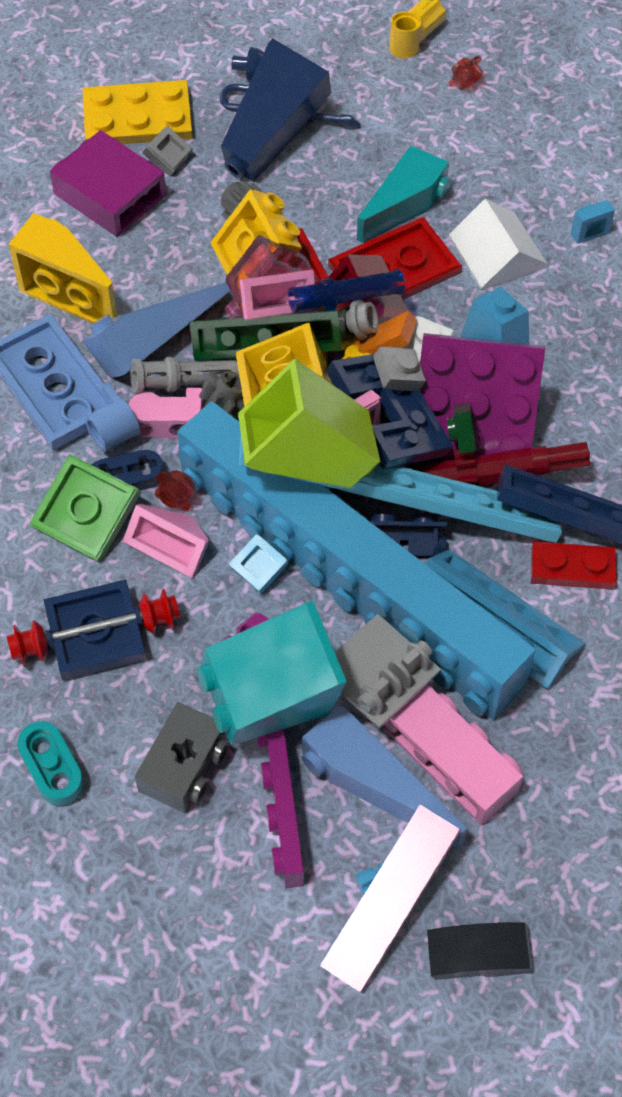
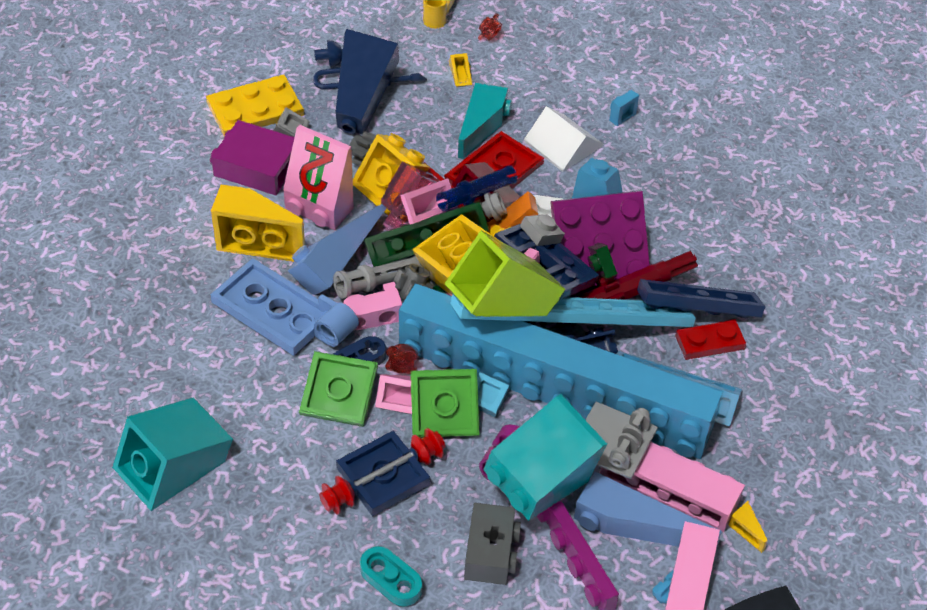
camera: 20 degrees left, 10 degrees down
(160, 233) = (319, 178): none -> bright pink slope
(199, 561) = (445, 402): none -> bright green tile
(407, 122) = (460, 69): none -> yellow piece
(511, 826) = (747, 526): none -> yellow piece

